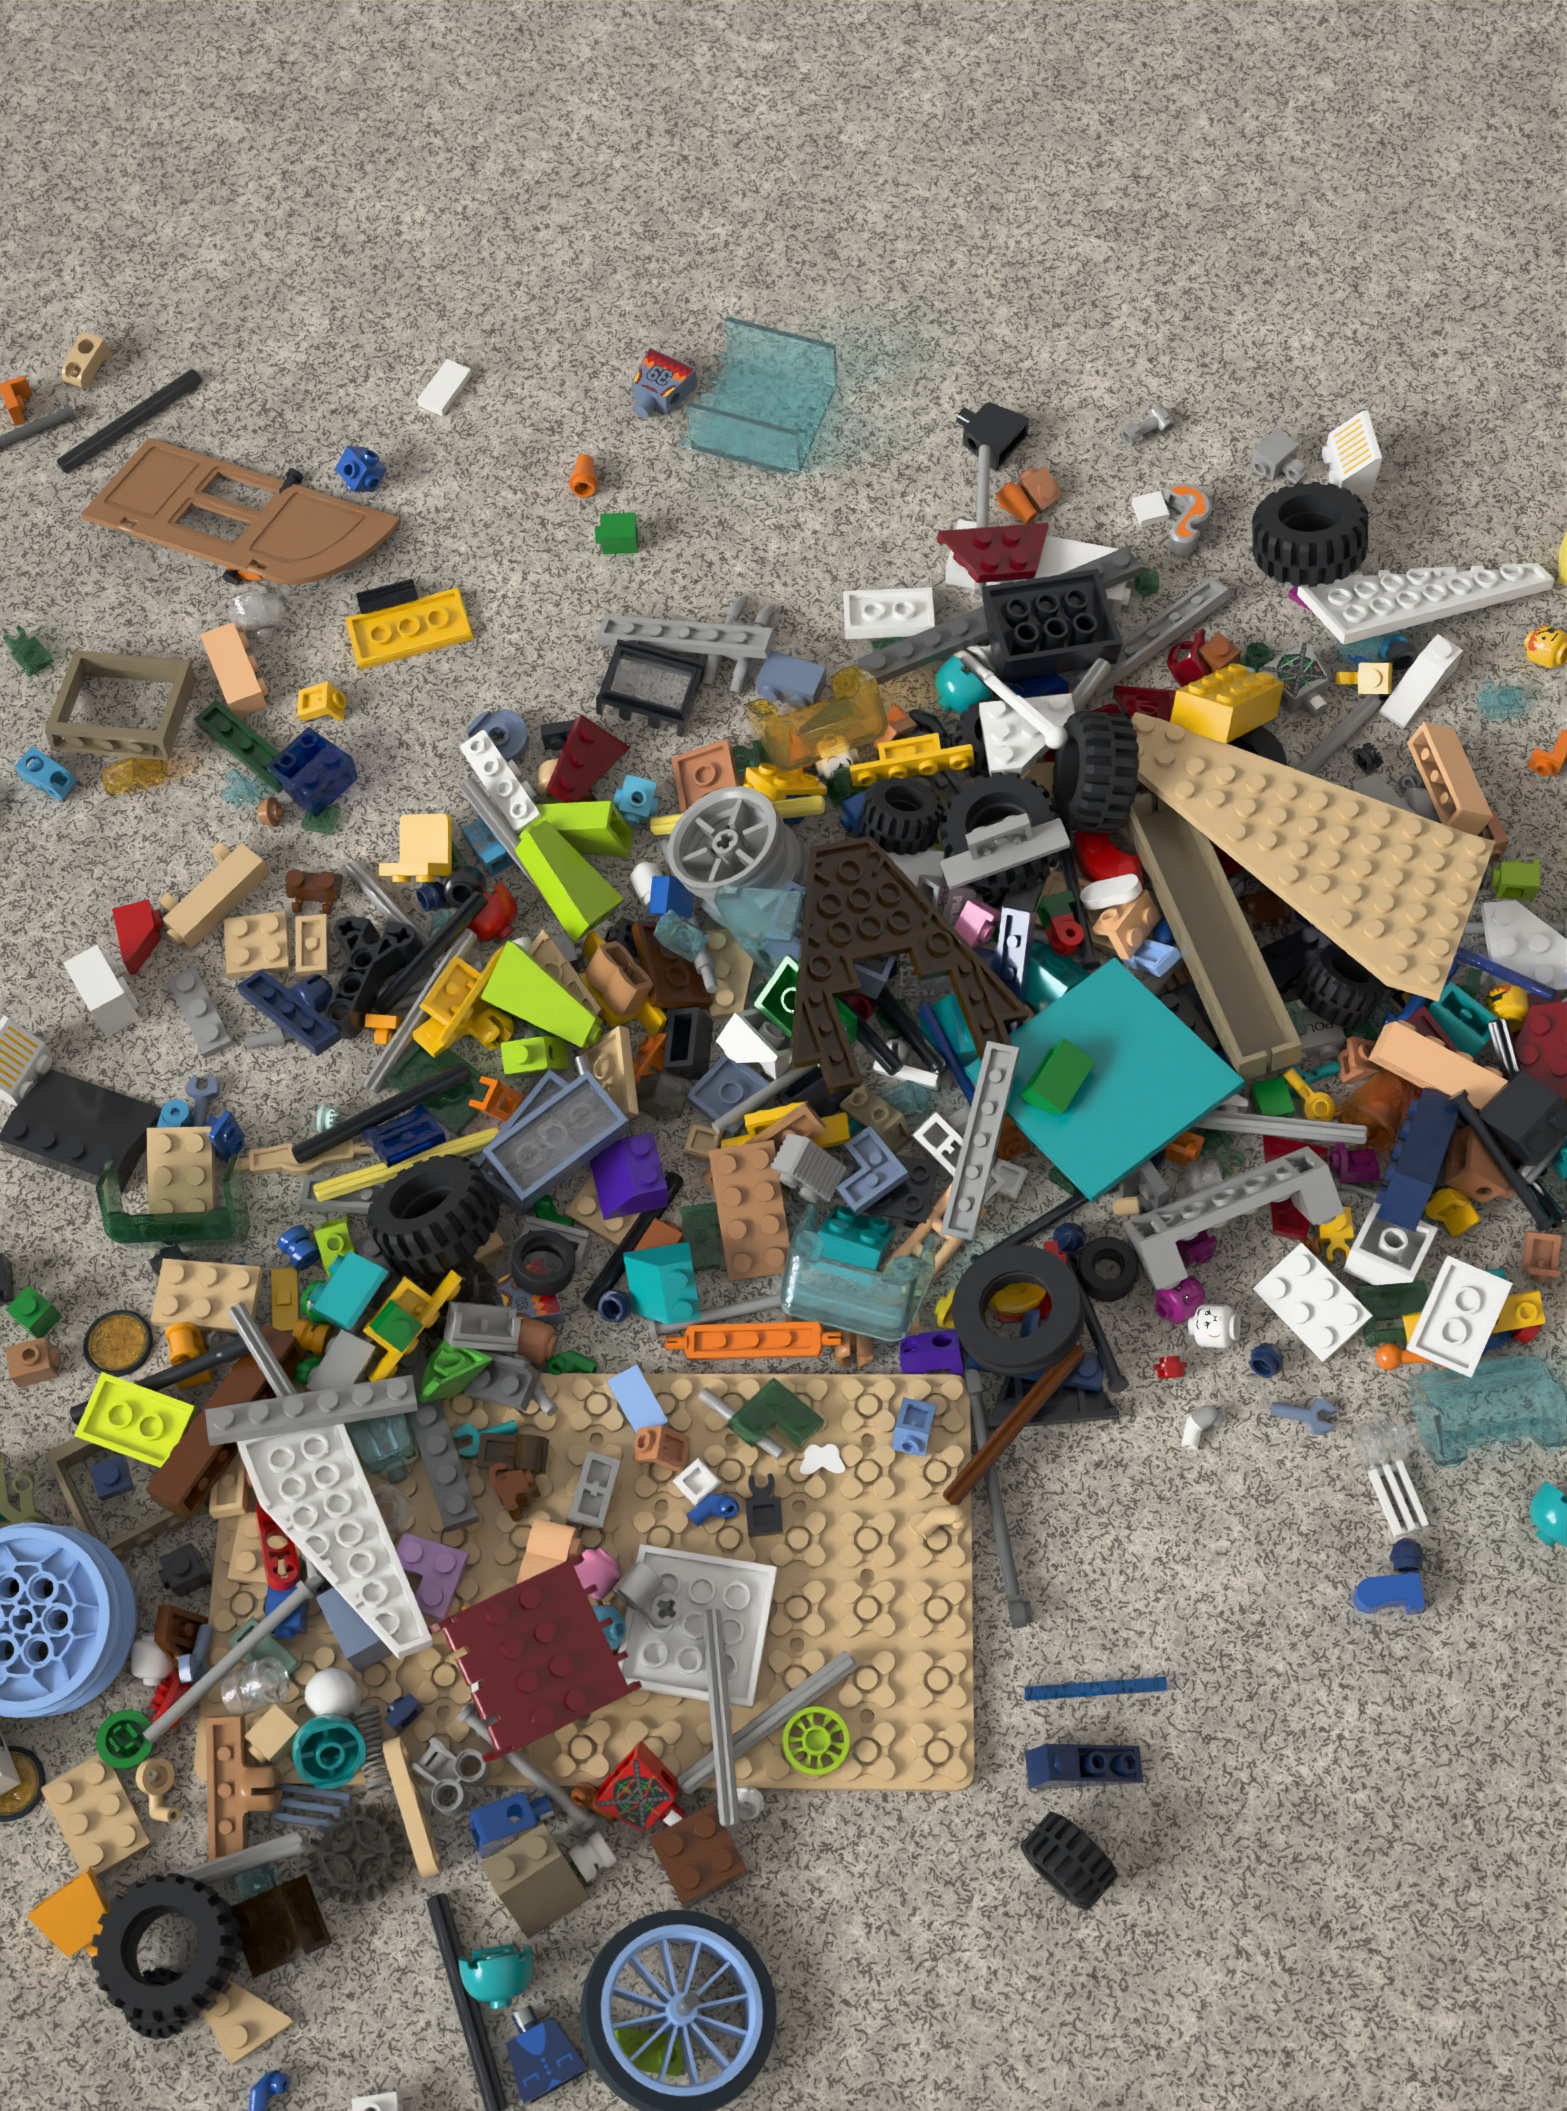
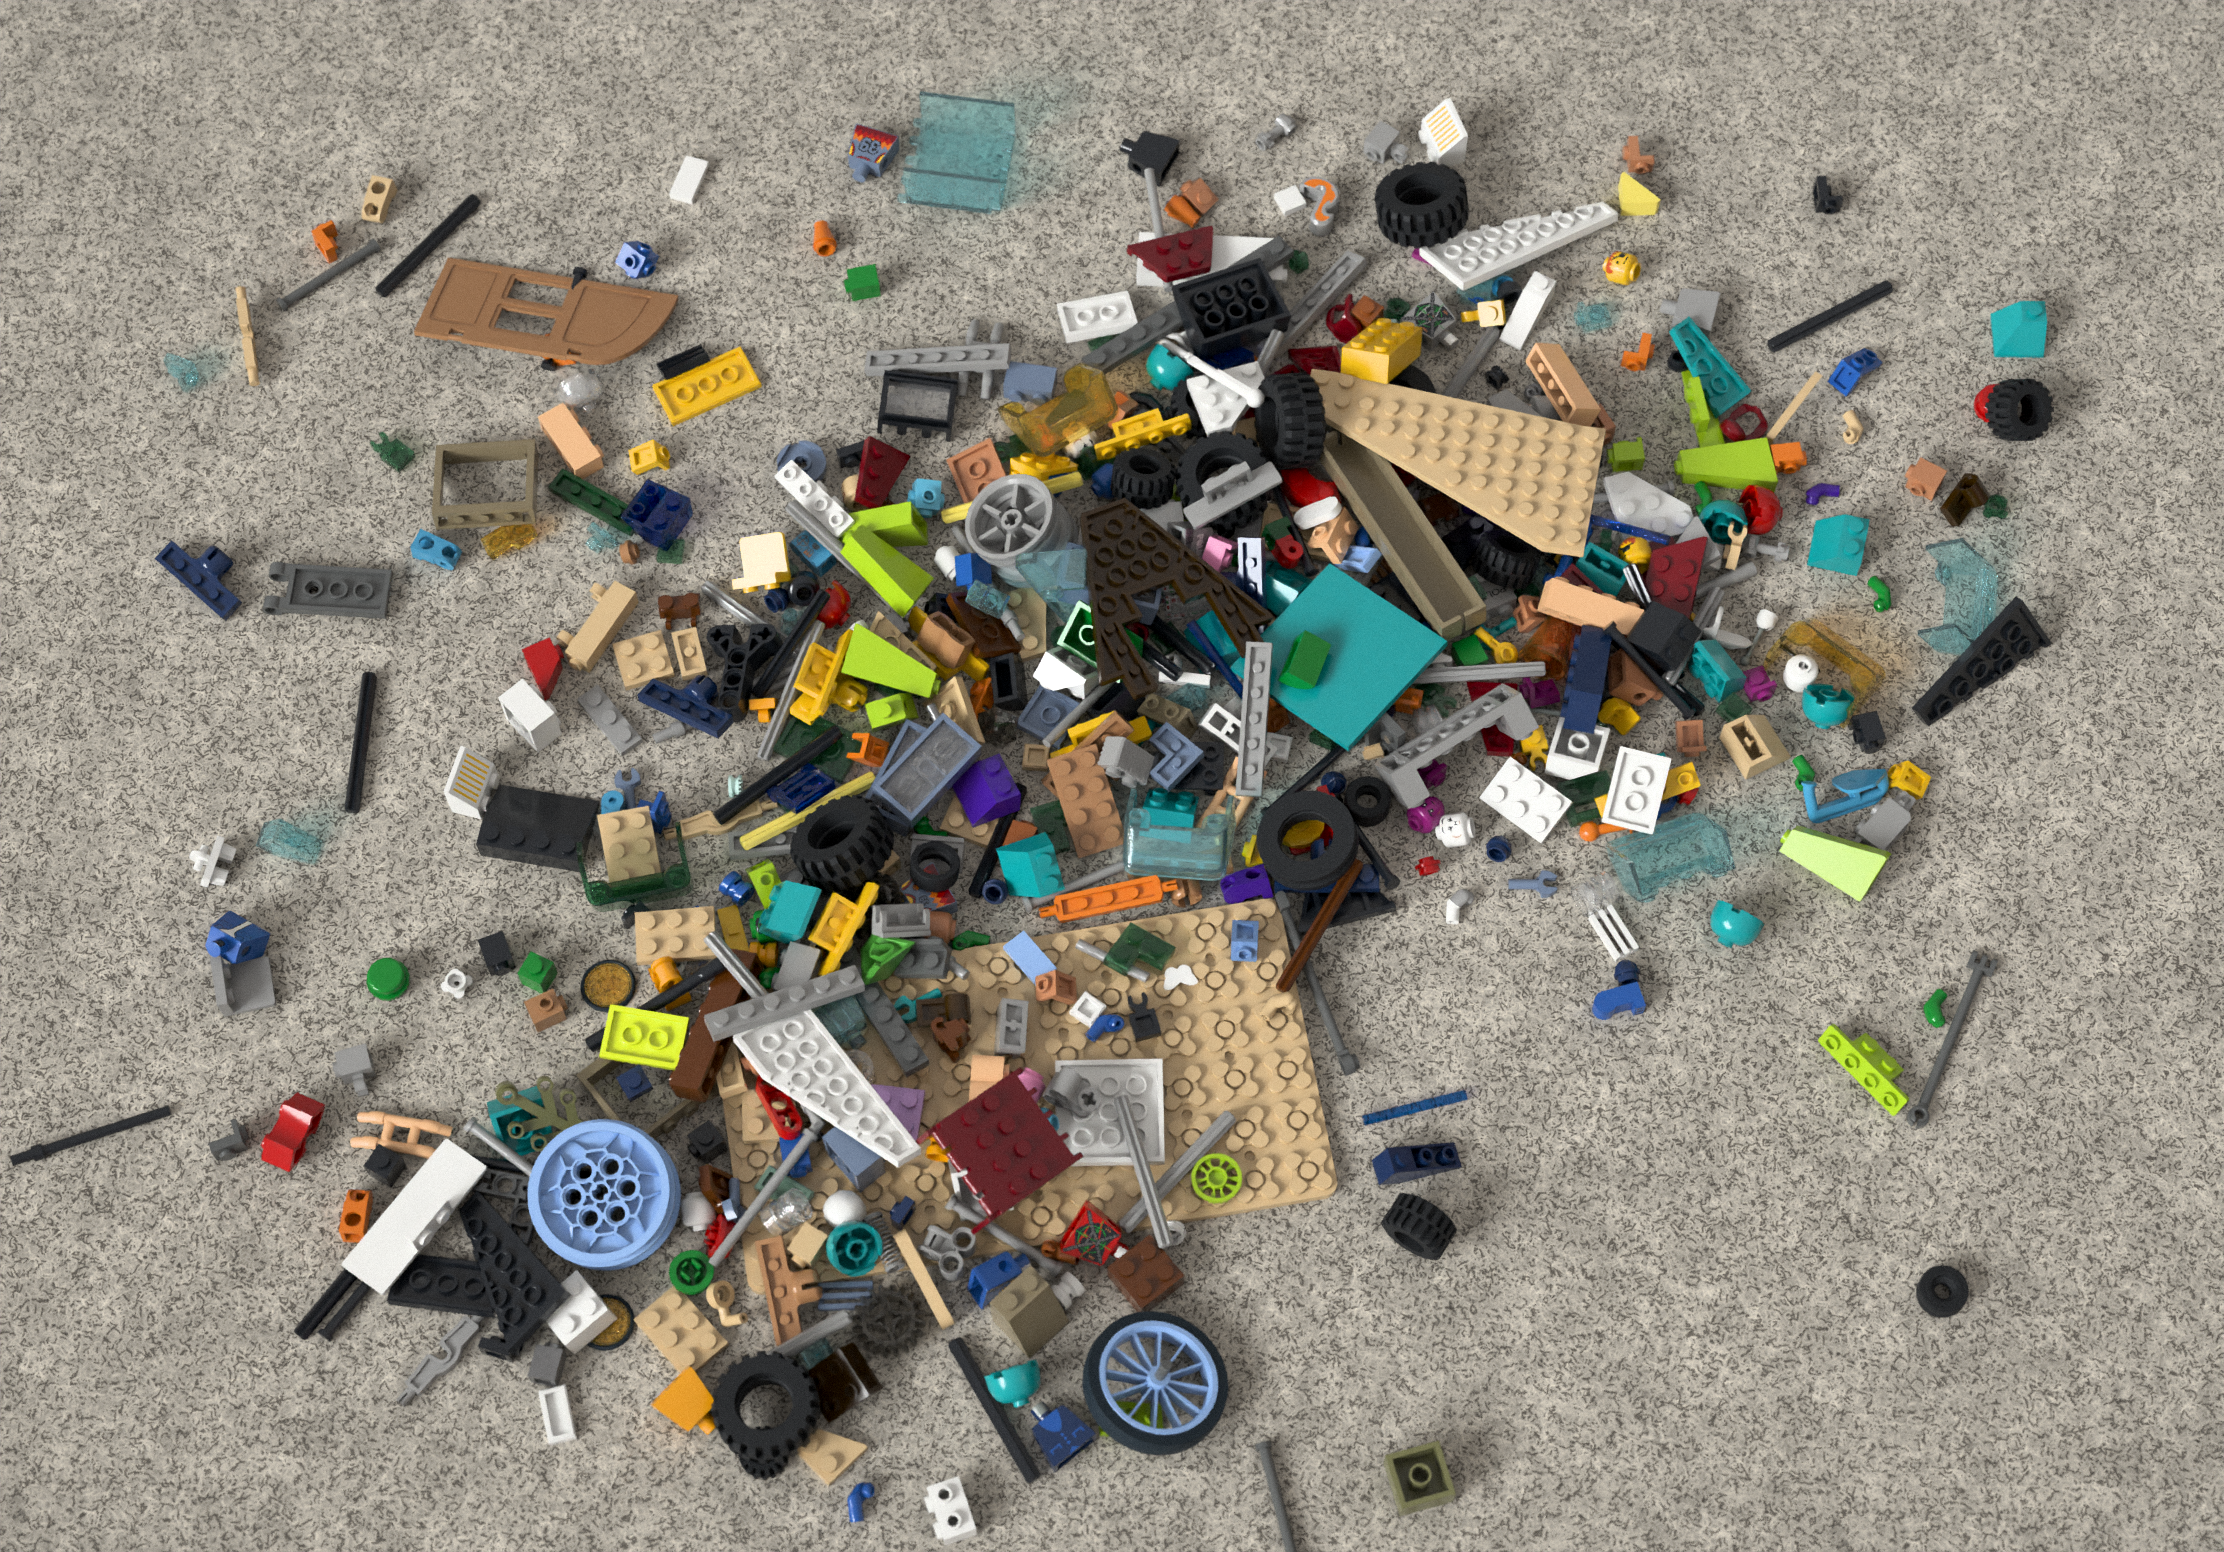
camera: 15 degrees left, 0 degrees up
(396, 1325) = (836, 929): green brick -> none

